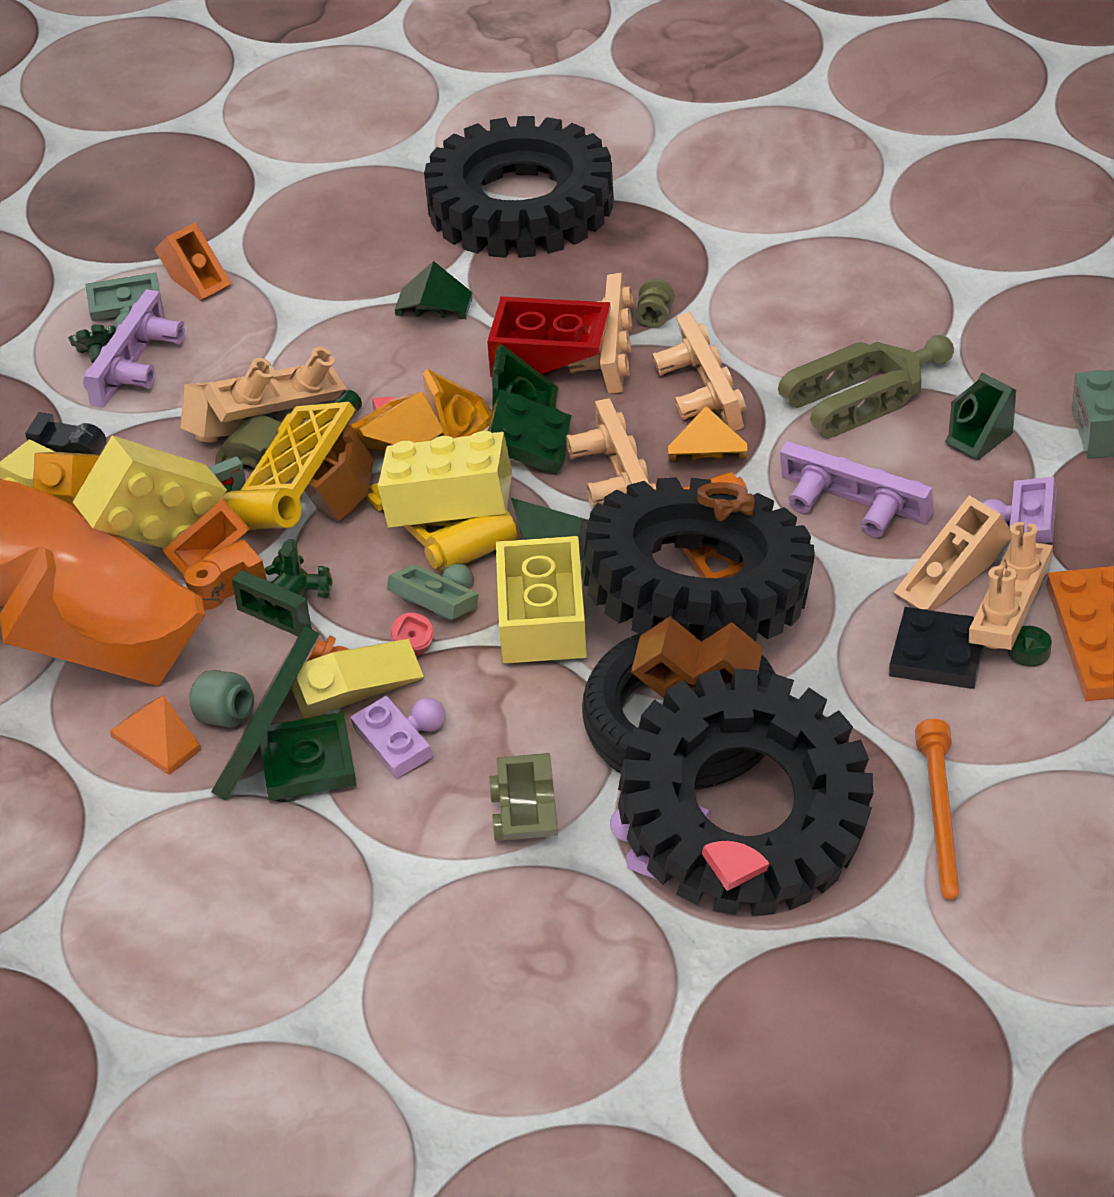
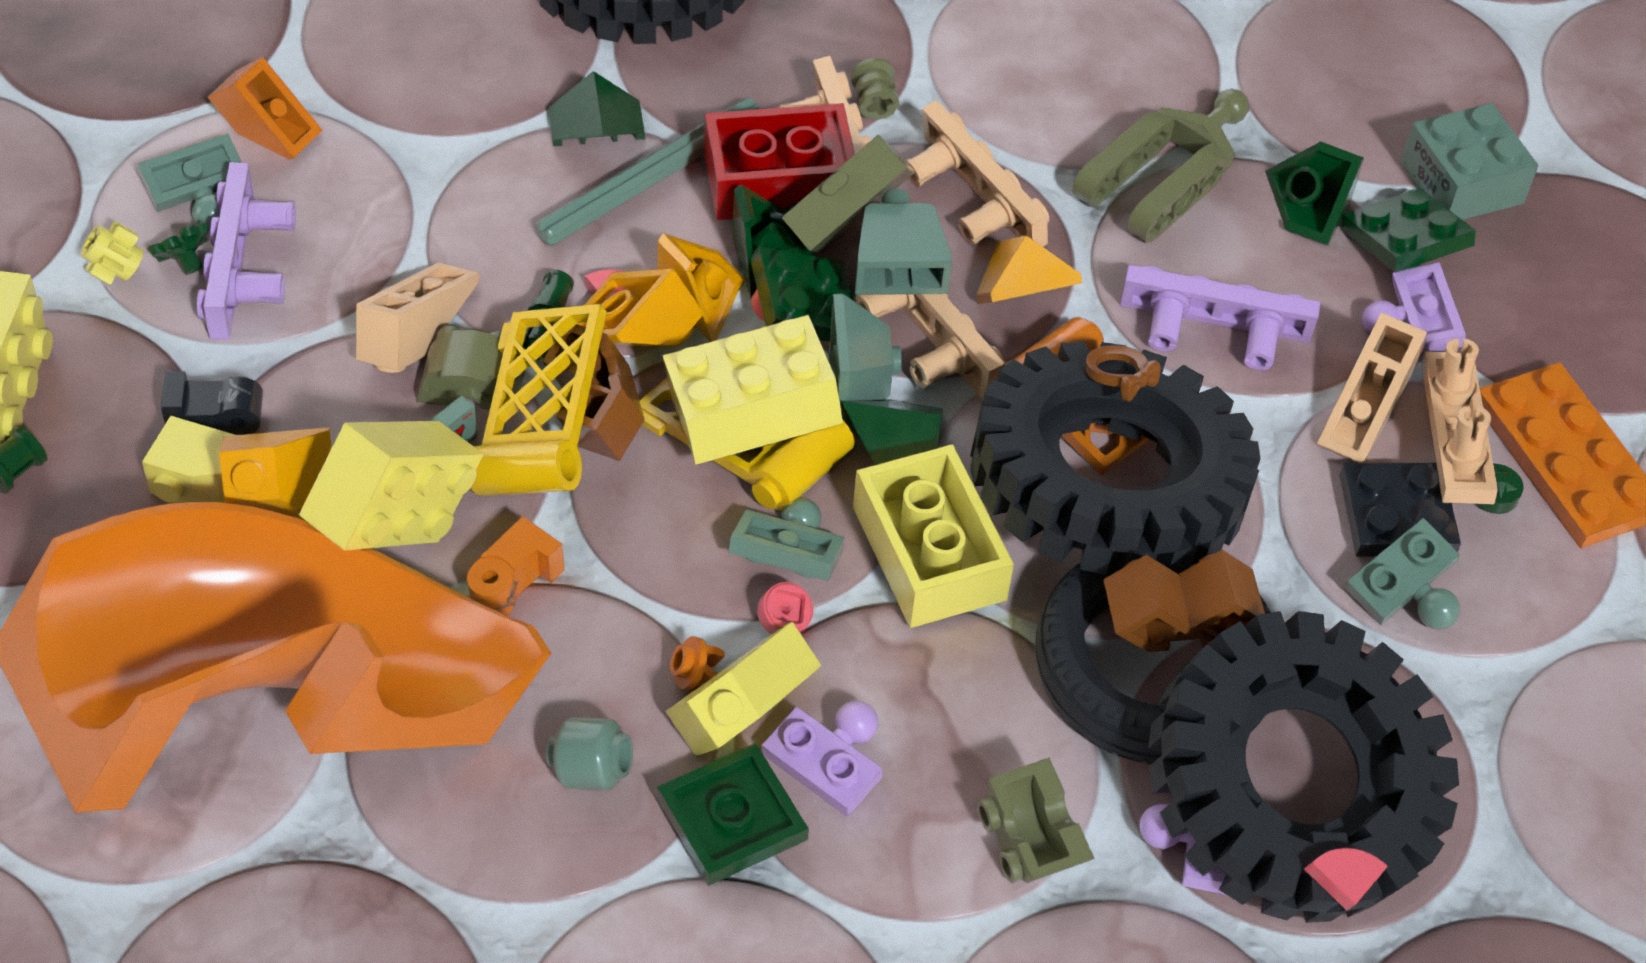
camera: 25 degrees left, 10 degrees up
(43, 338) = (112, 253): none -> light yellow gear
(157, 735) = (522, 820): orange slope -> none
(206, 536) = (474, 525): orange slope -> none
(265, 713) = (665, 844): dark green piece -> none
(273, 390) = (471, 289): light nougat plate -> none
(281, 600) = (597, 591): dark green piece -> none
(423, 348) = (627, 183): none -> sand green axle
(542, 472) = (861, 354): none -> sand green slope
(580, 361) = (844, 195): none -> olive container
(600, 402) = (902, 248): none -> sand green torso
(915, 688) = (1406, 573): none -> sand green plate
(934, 741) = (1453, 639): orange piece -> none
(1044, 452) = (1408, 230): none -> dark green plate

